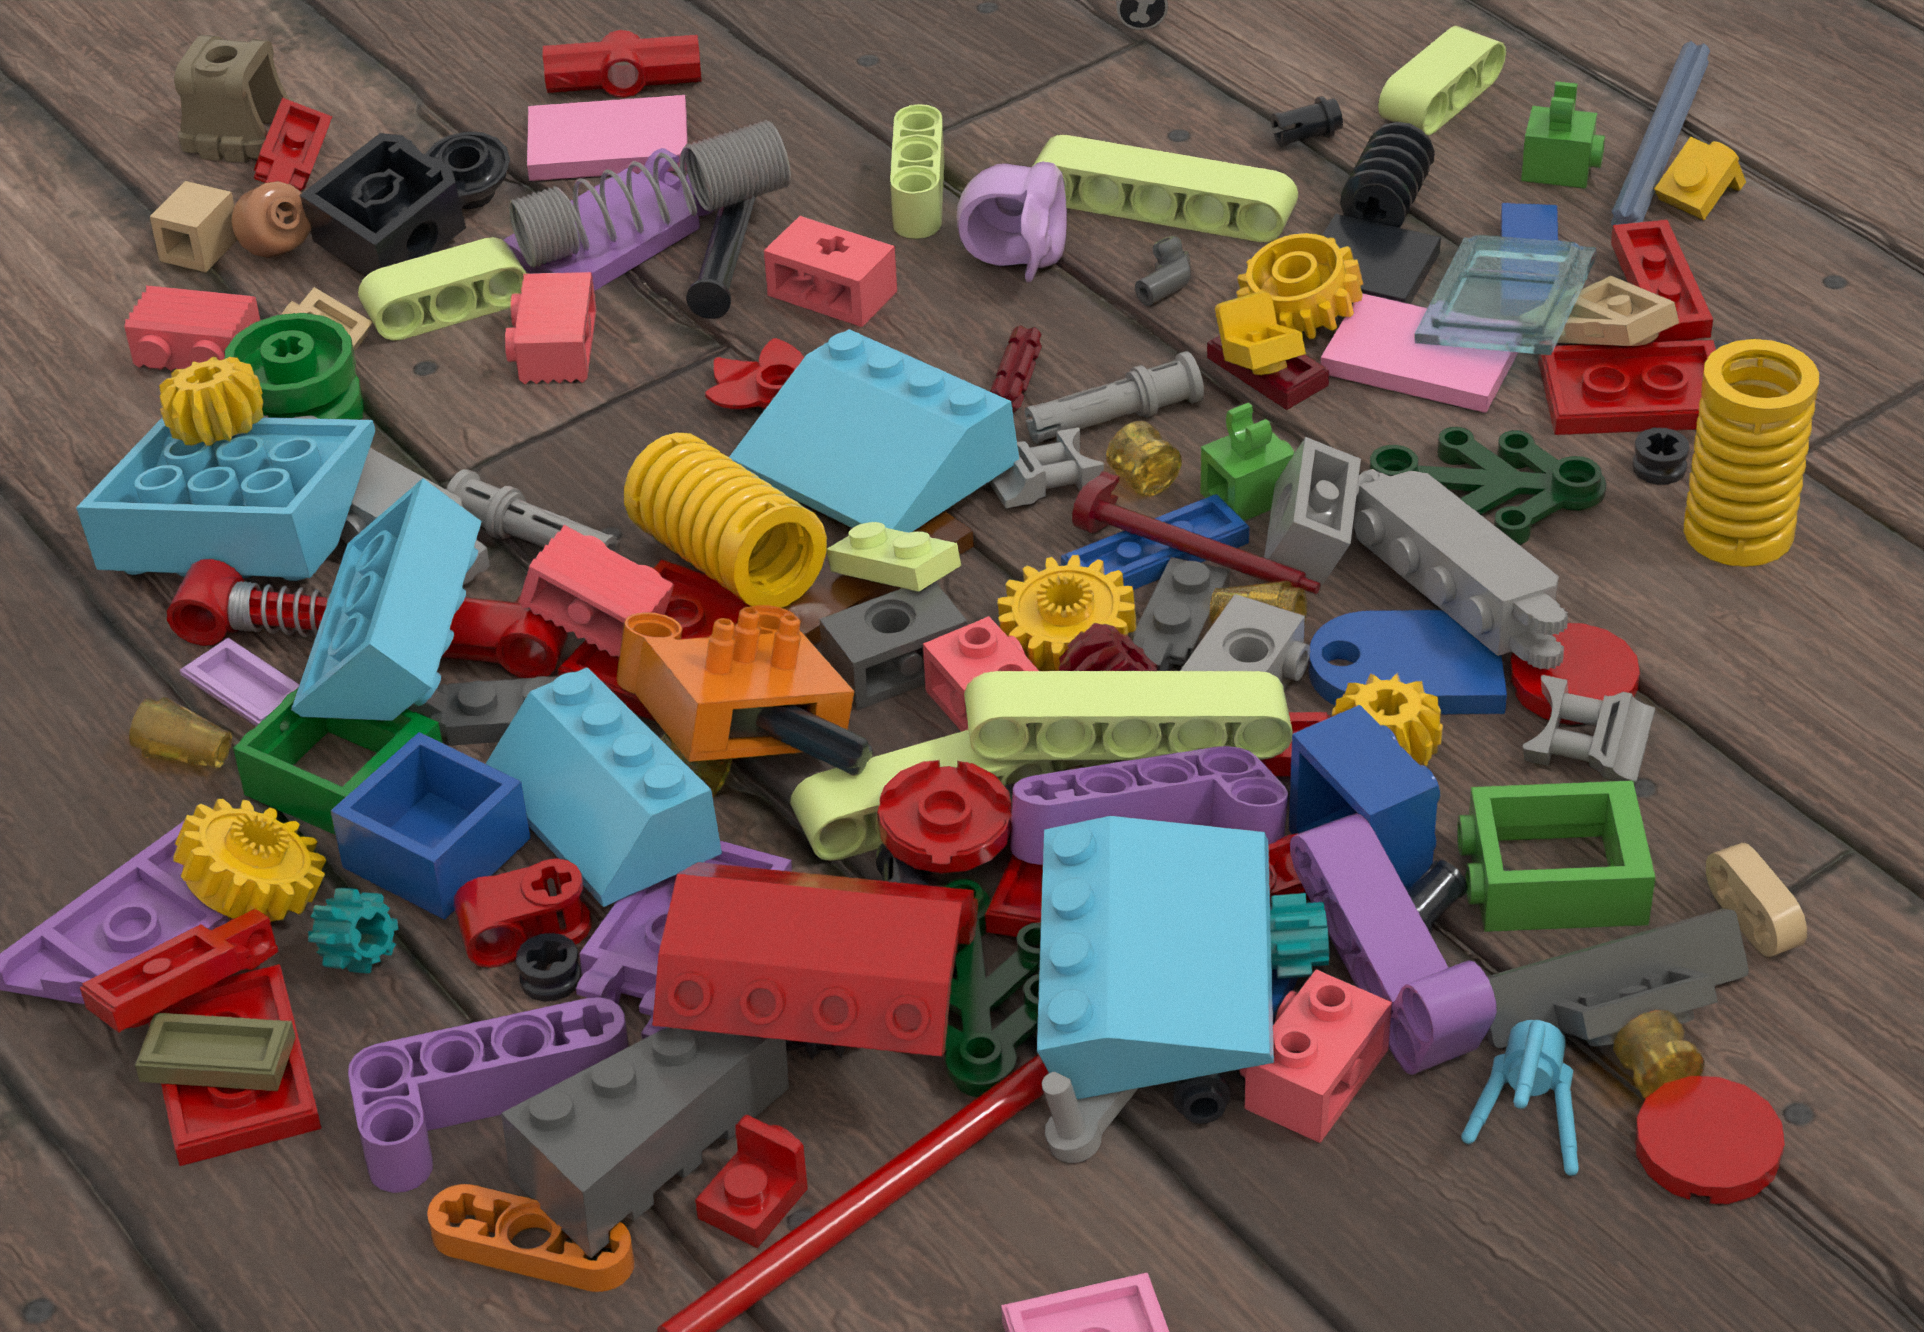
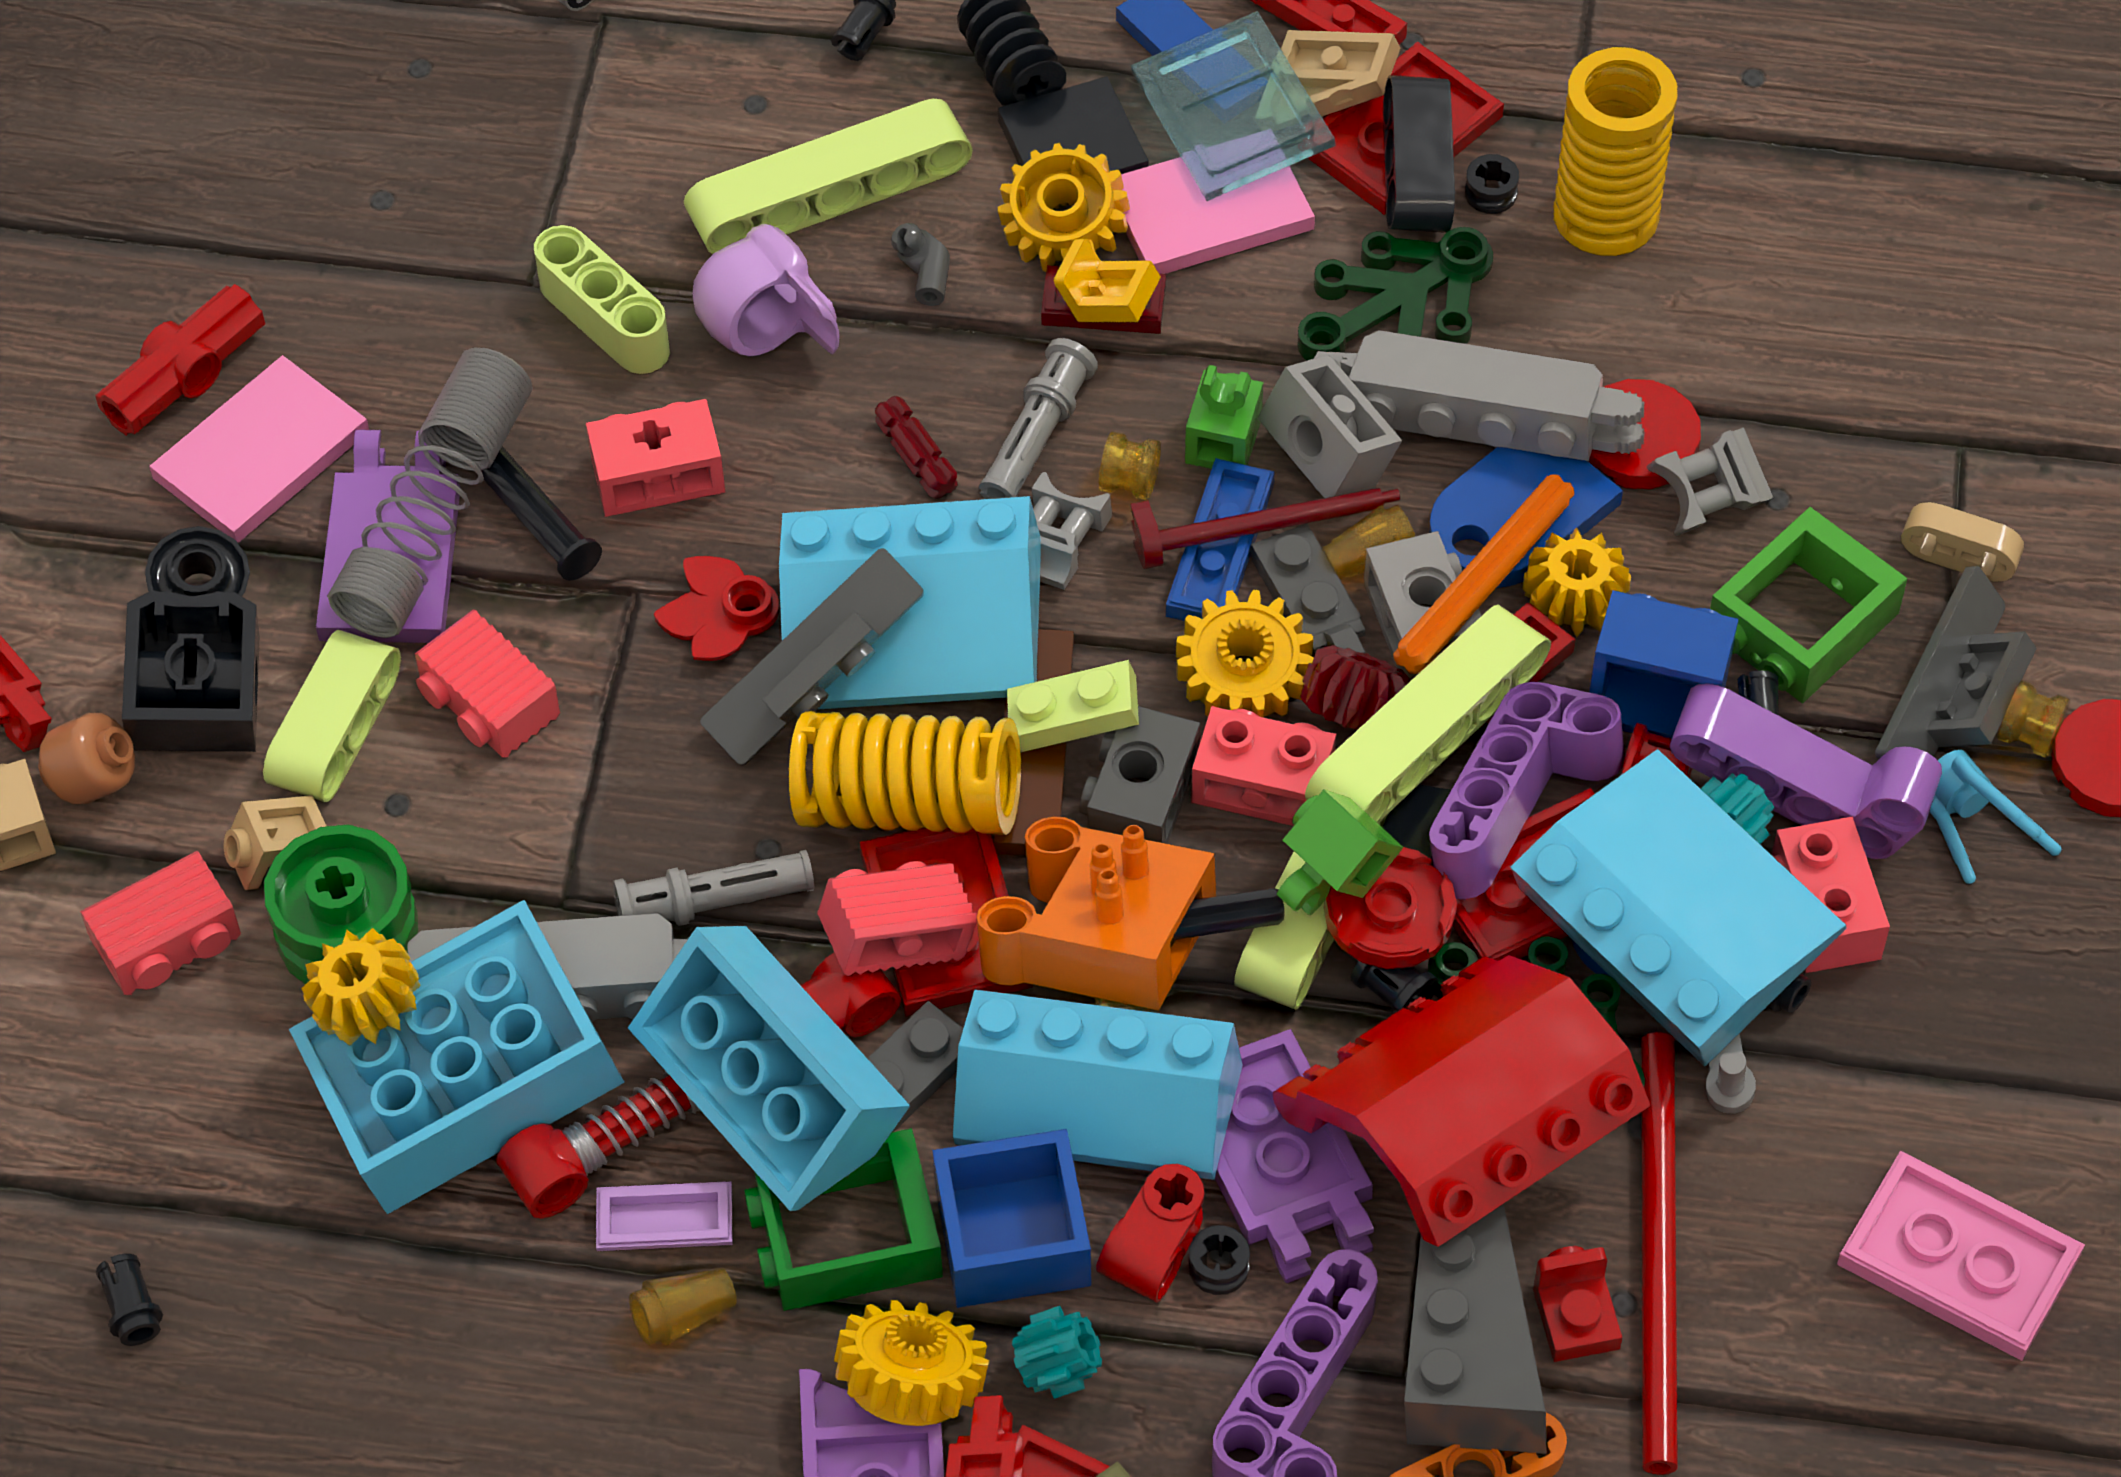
camera: 45 degrees left, 15 degrees up
(778, 414) = (820, 649): none -> dark grey bracket
(926, 730) = (1339, 850): none -> bright green brick
(1306, 656) = (1483, 574): none -> orange axle
(1607, 391) = (1418, 154): none -> black beam

